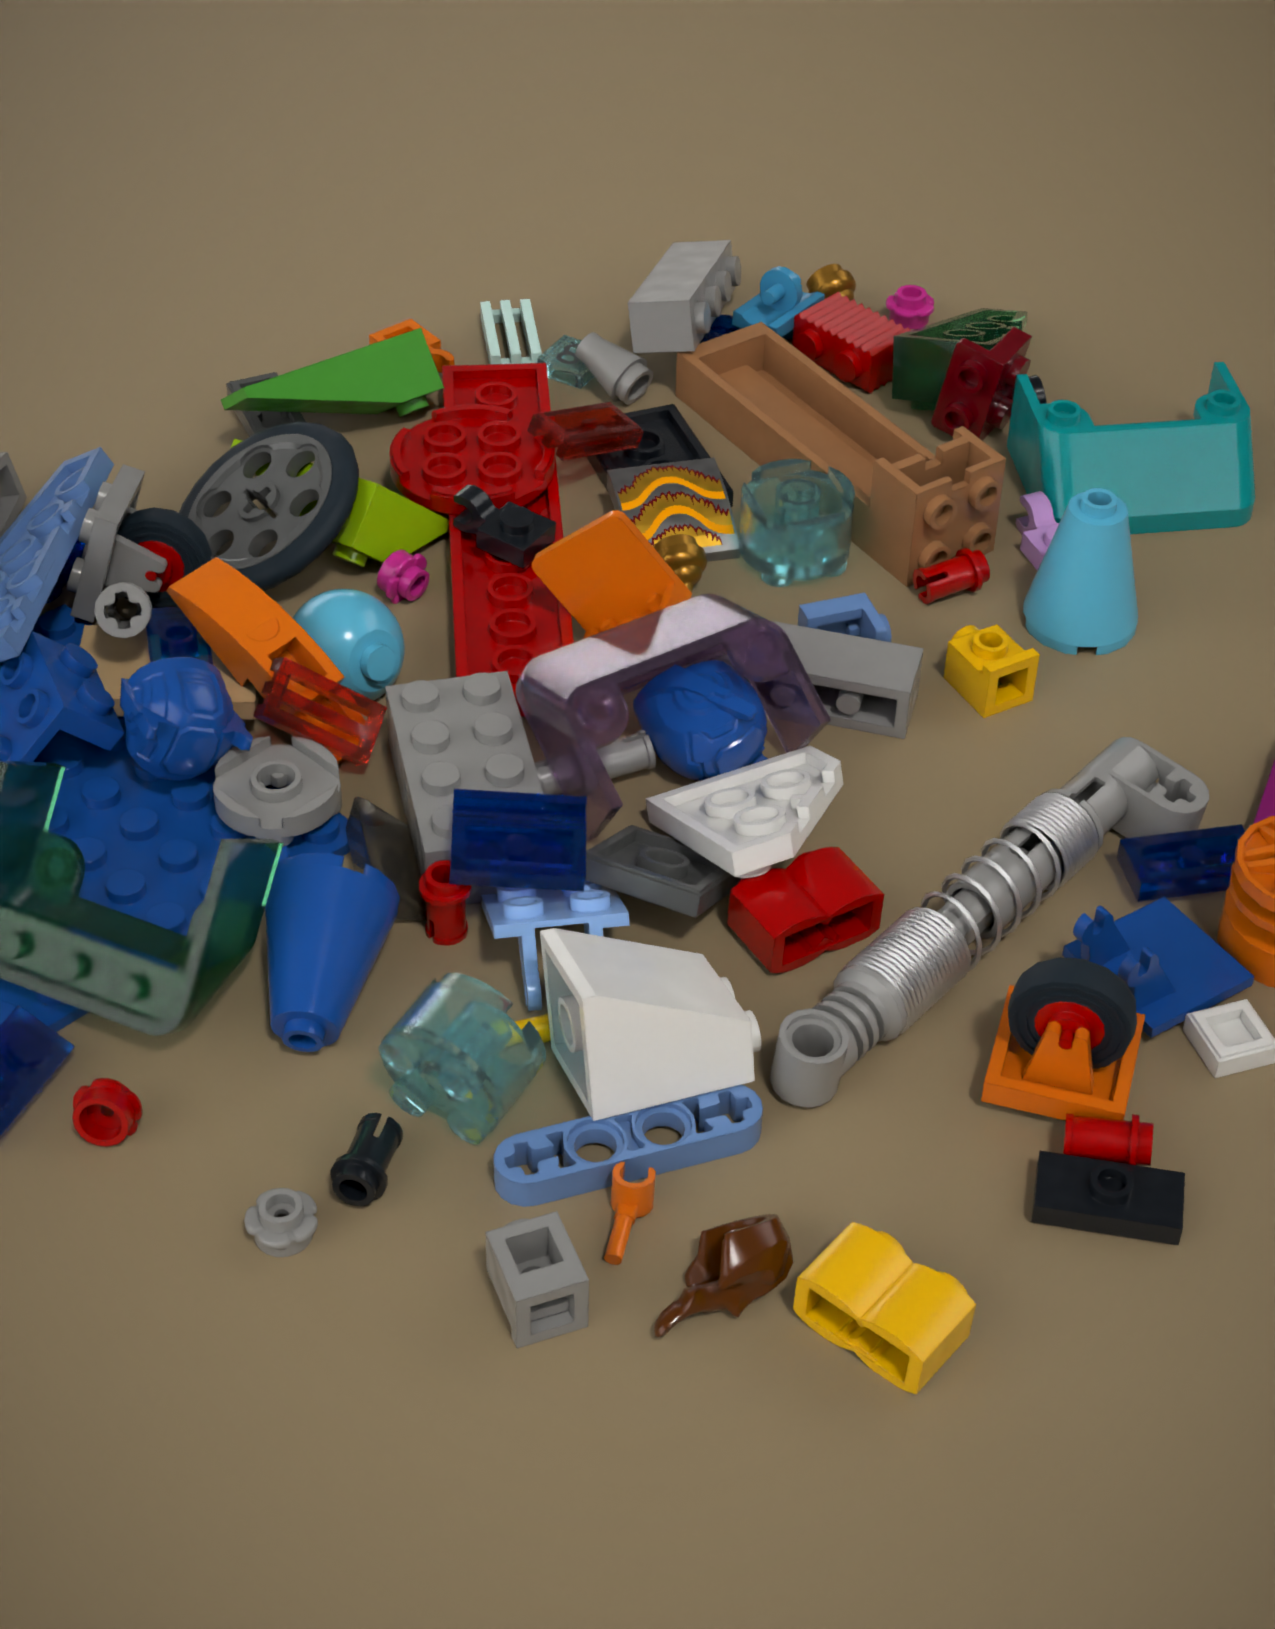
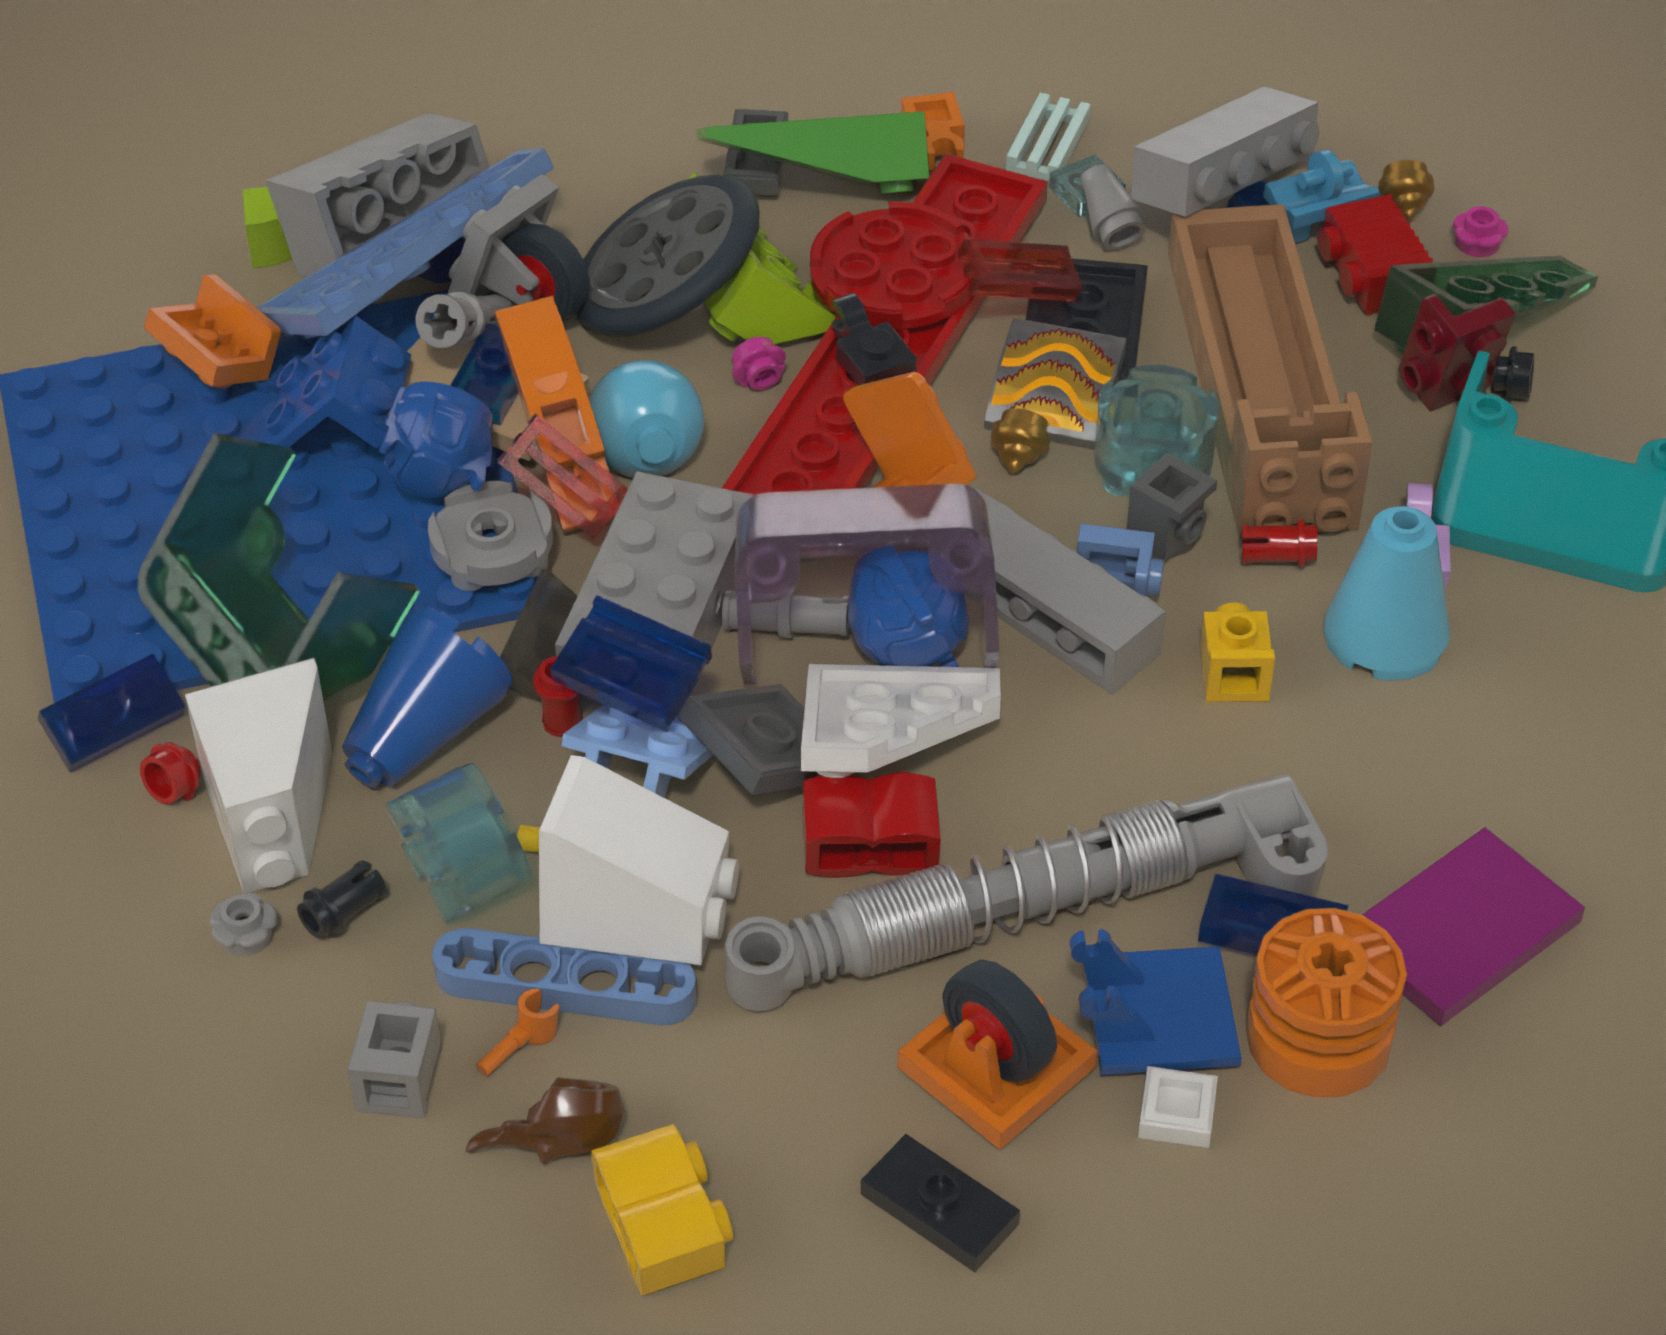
camera: 30 degrees right, 5 degrees up
(217, 1069) = (265, 768): none -> white slope
(857, 562) = (1170, 504): none -> dark grey brick
(1109, 1139) = (989, 1159): red pin -> none

